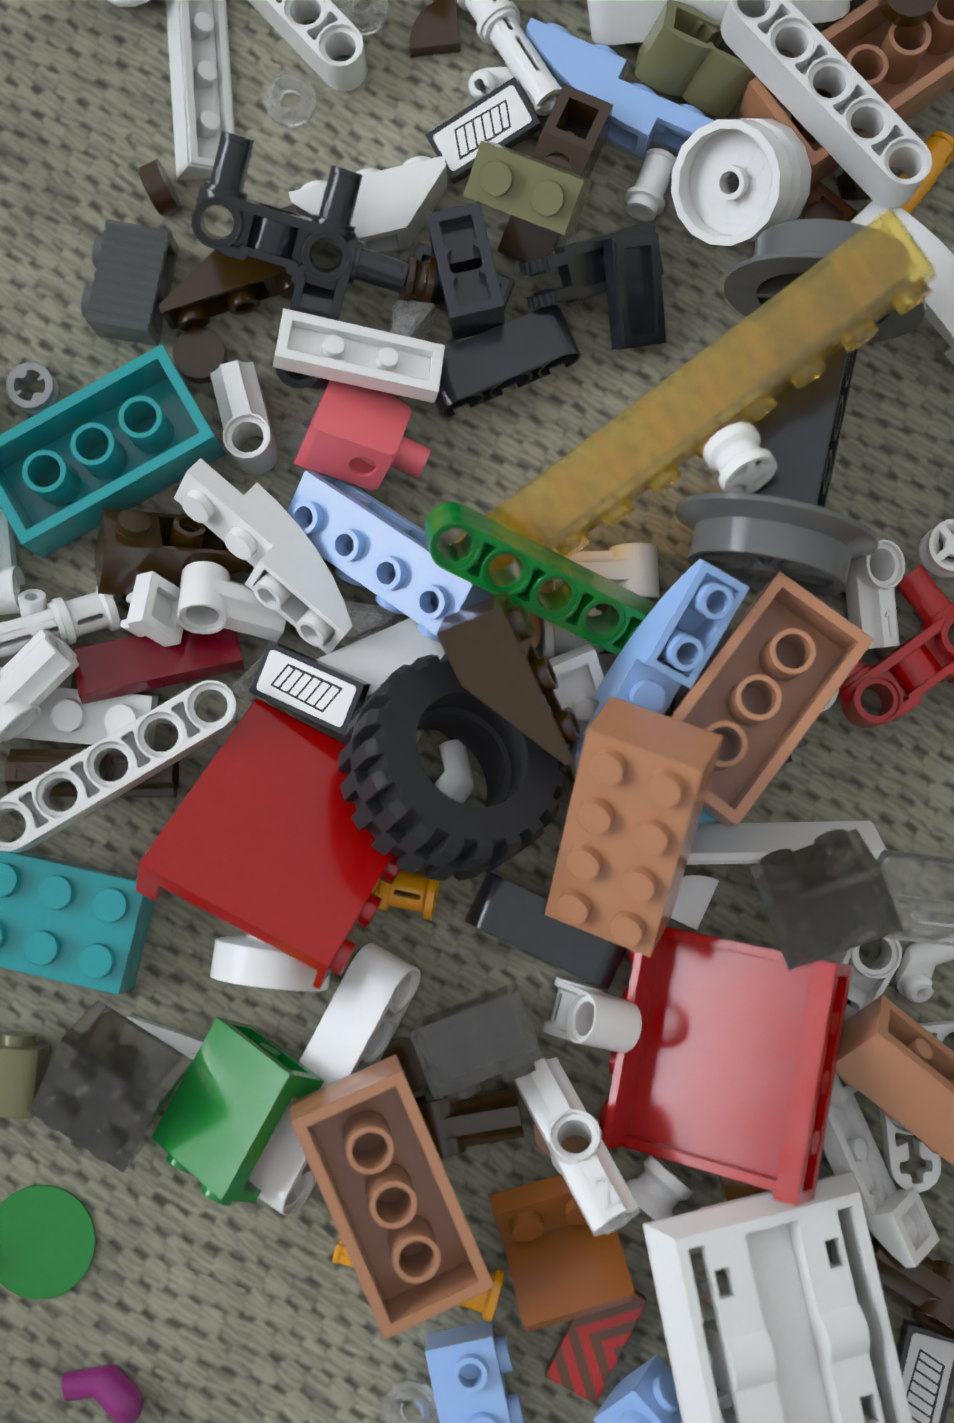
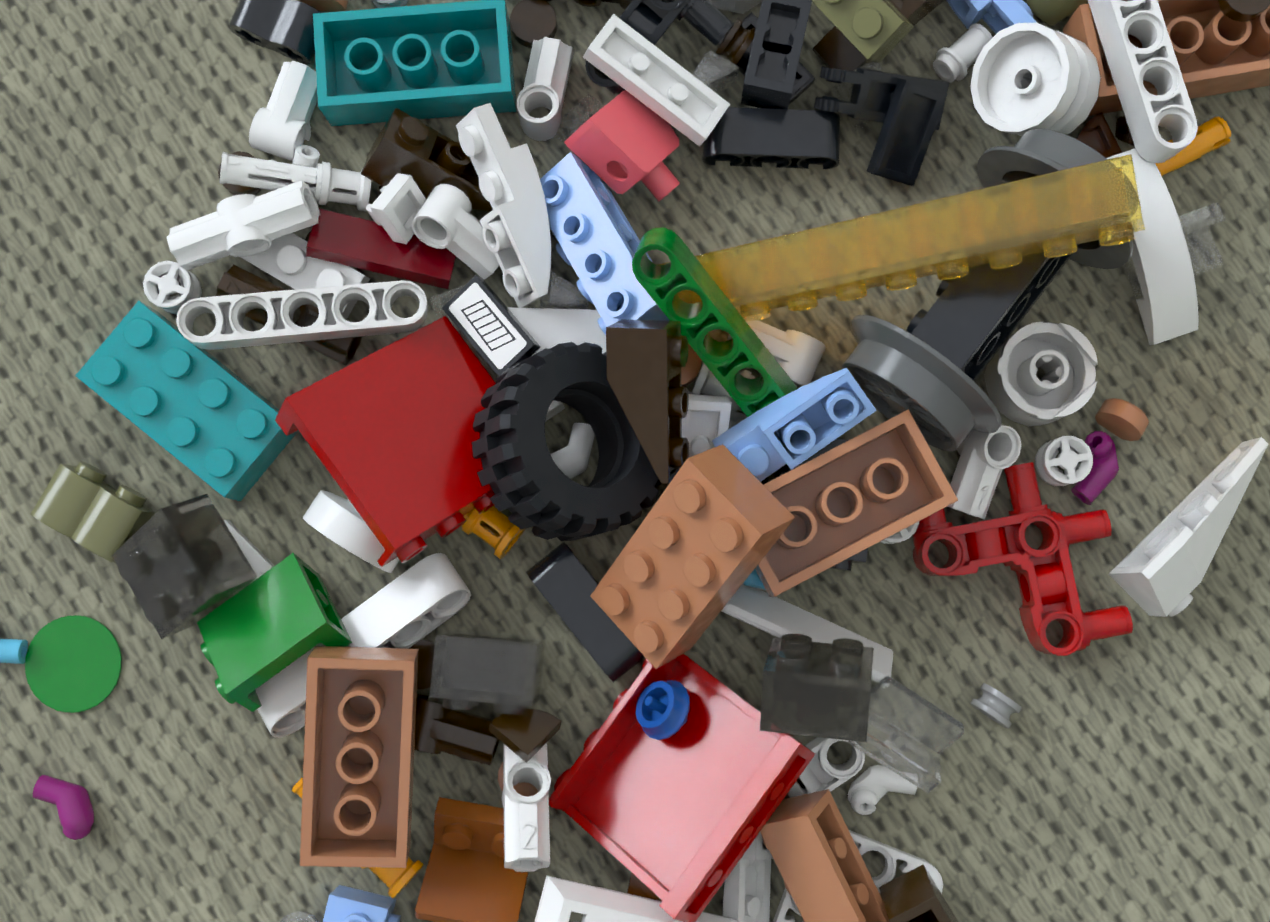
camera: 25 degrees right, 0 degrees up
(546, 1087) = (525, 732): none -> dark brown tile
(593, 1017) = (590, 697): white piece -> none
(658, 1189) = (576, 858): white wheel -> none
(673, 993) = (663, 709): none -> blue hat
(693, 899) = (716, 643): white tile -> none
(739, 458) = (917, 302): white wheel -> none
(915, 475) = (1065, 387): none -> white brick

